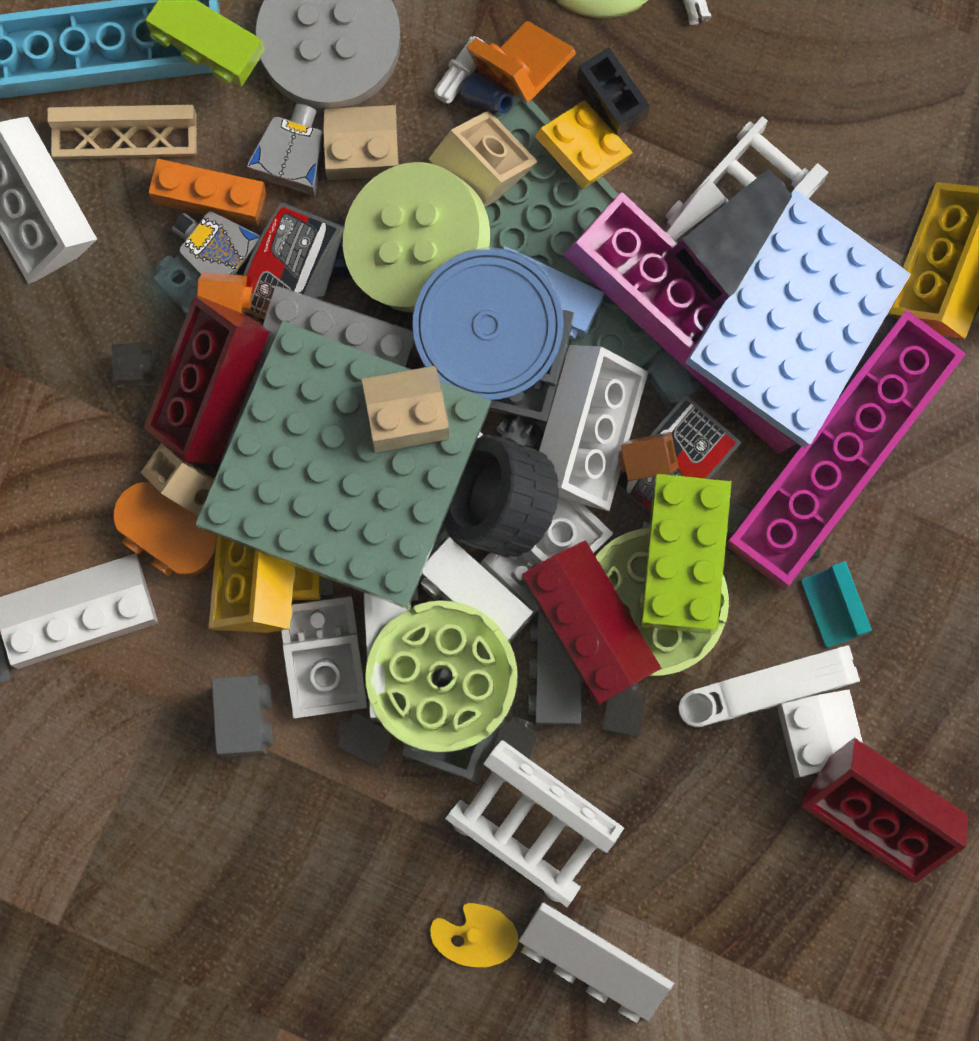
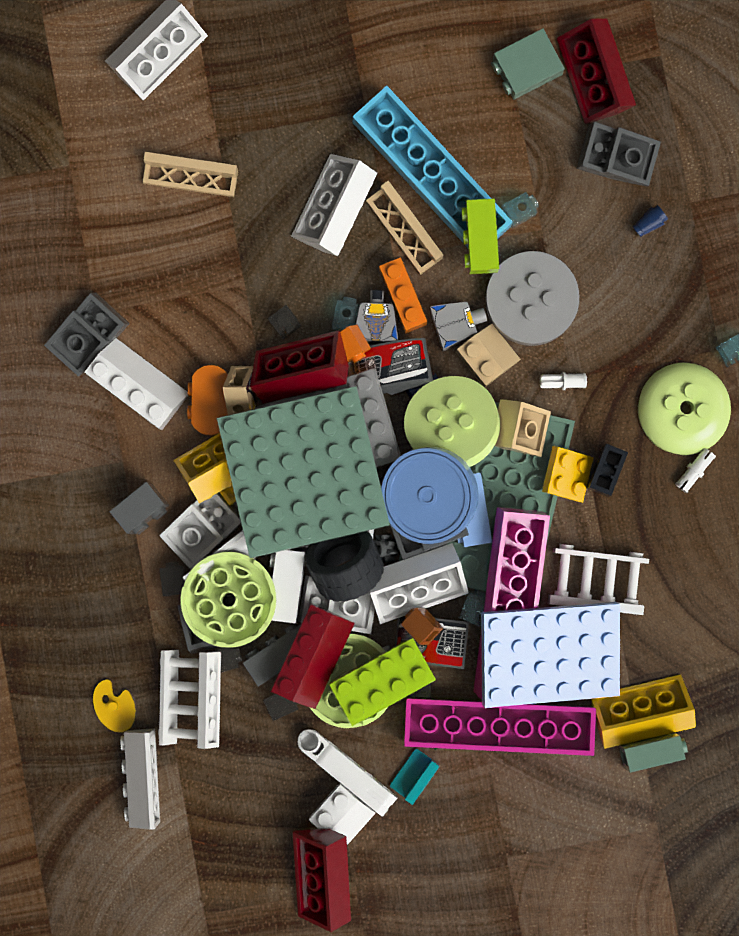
camera: 60 degrees right, 5 degrees up
(405, 409) = (352, 484): tan slope -> none
(484, 93) = (558, 402): dark blue cone -> none
(524, 61) = (591, 411): orange bracket -> none
(701, 207) = (572, 562): white slope -> none
(729, 240) = (562, 590): black slope -> none

